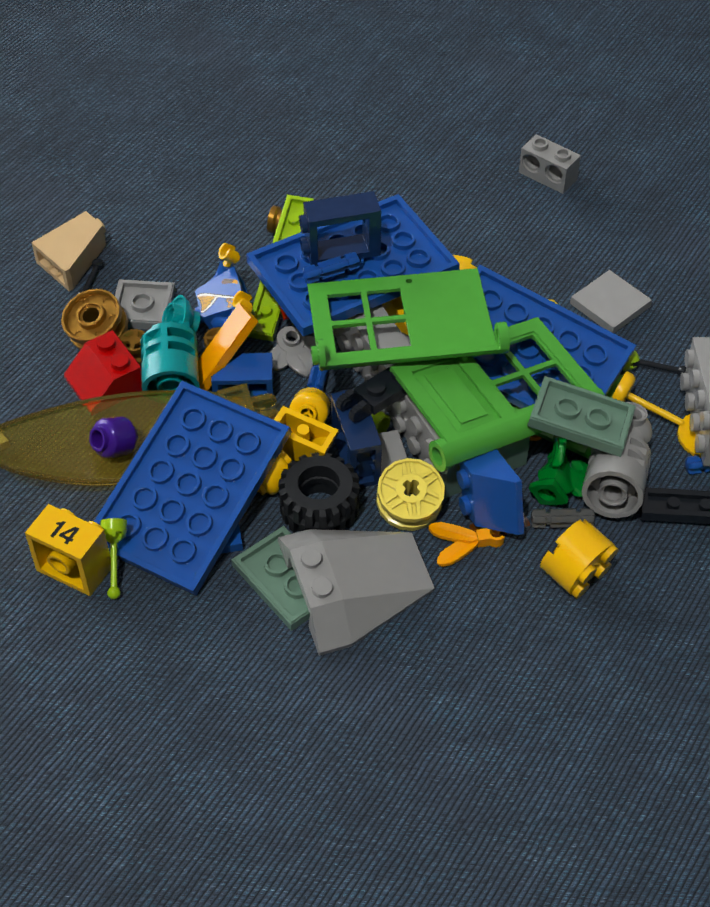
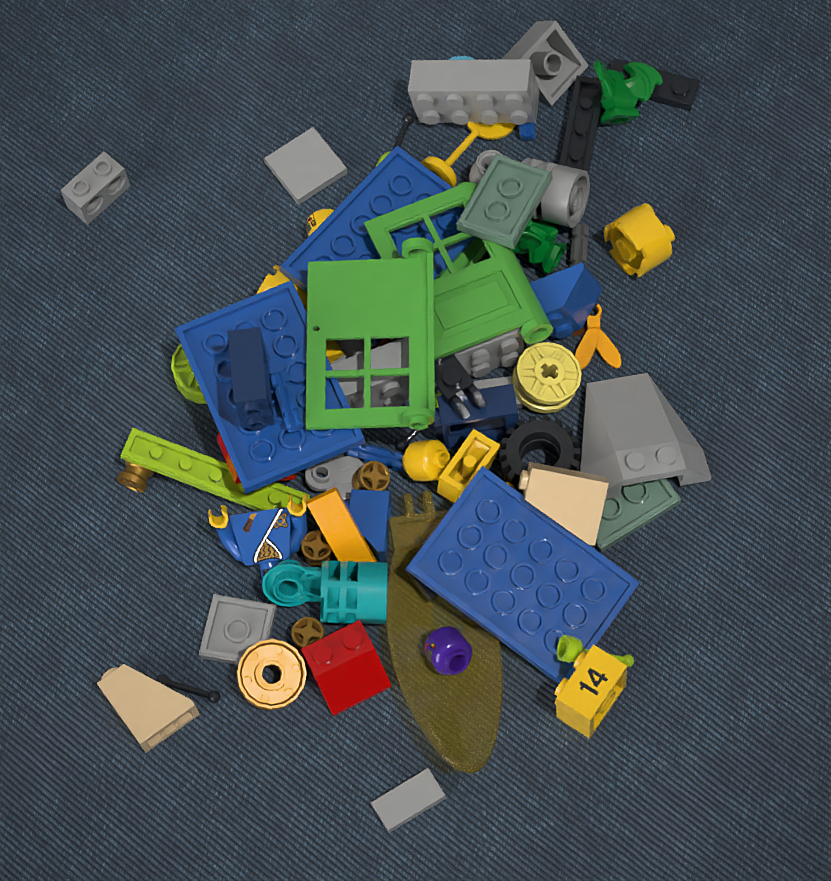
camera: 75 degrees left, 15 degrees up
(266, 505) = (567, 497): none -> tan slope
(286, 366) = (373, 471): none -> pearl gold wheel

